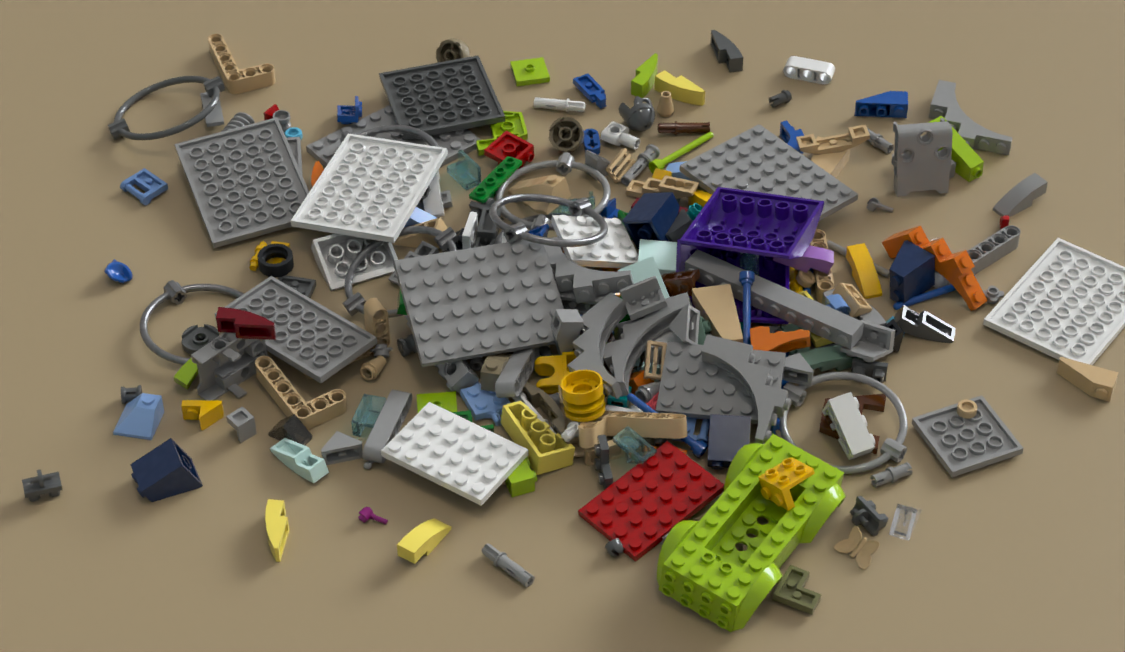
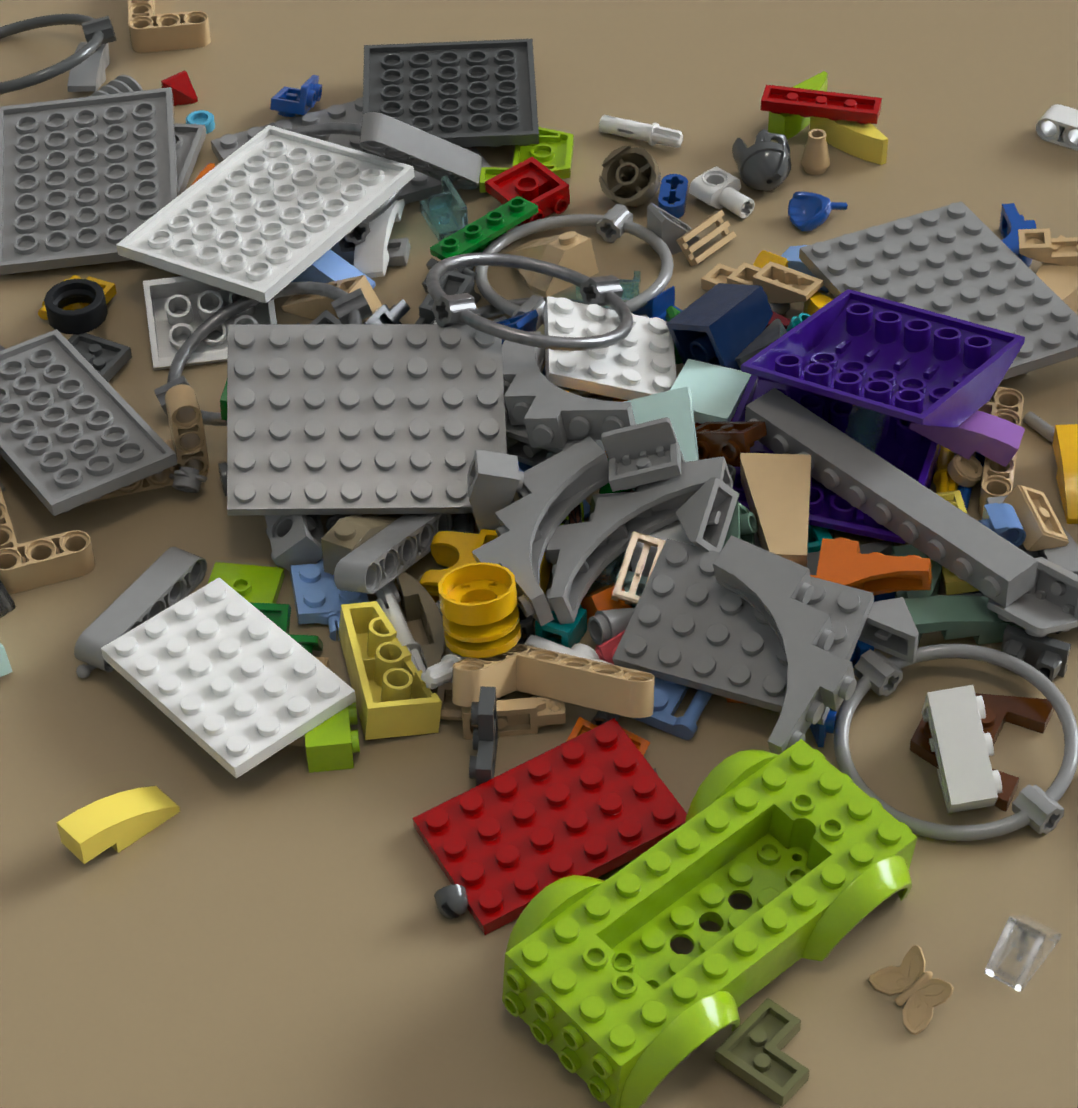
camera: 15 degrees right, 0 degrees up
(284, 119) = (187, 95): light grey wheel -> none
(341, 449) = (43, 635): light grey slope -> none
(367, 413) = (112, 580): clear light blue panel -> none
(367, 513) = (43, 756): magenta hand -> none
(372, 368) = (160, 506): tan cone -> none
(445, 136) = (420, 149): none -> light grey beam
(451, 50) = (495, 24): dark tan cylinder -> none
(470, 231) = (405, 304): white plate -> none
(501, 560) = (253, 906): light grey axle -> none
(530, 71) = (613, 76): lime plate -> none
(591, 90) = (701, 115): blue hinge -> none
(634, 445) = (547, 716): clear light blue slope -> none
(641, 163) = (759, 231): light grey pin -> none
(660, 163) = (776, 245): lime piece -> none
(662, 75) = (821, 104): none -> red plate
(673, 139) = (811, 209): none -> blue piece
(683, 127) = (838, 193): reddish brown axle -> none
(698, 447) = (671, 740): blue piece -> none
(726, 52) = (948, 86): dark grey slope -> none
(726, 438) = (721, 726): dark blue slope -> none
(746, 279) = (842, 451): blue piece -> none
(780, 479) = (787, 827): yellow bracket -> none
(784, 96) = (1017, 169): dark grey pin -> none
(865, 514) = (946, 926): dark grey hips -> none
(891, 474) = (1020, 856): light grey pin -> none

